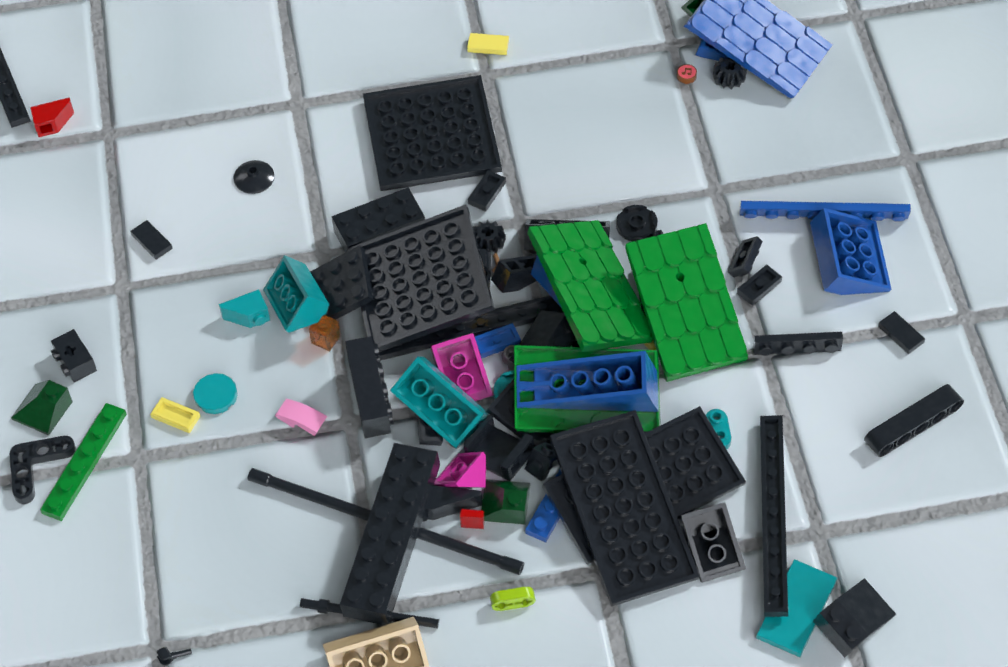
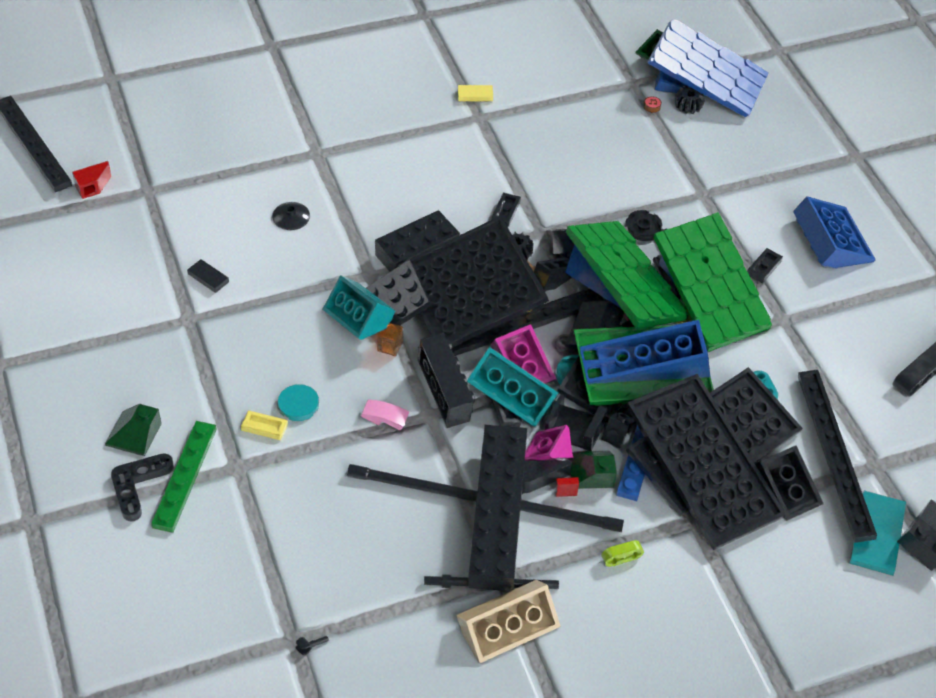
camera: 15 degrees left, 5 degrees down
(73, 355) = (156, 382): black brick -> none
(246, 310) = (312, 327): teal slope -> none
(431, 133) = (444, 167): black plate -> none
(497, 340) = (551, 330): blue plate -> none
(745, 257) = (747, 242): black plate -> none
(794, 210) = (791, 201): blue plate -> none
(797, 343) = (812, 309): black plate -> none
(901, 332) = (895, 293): black tile -> none

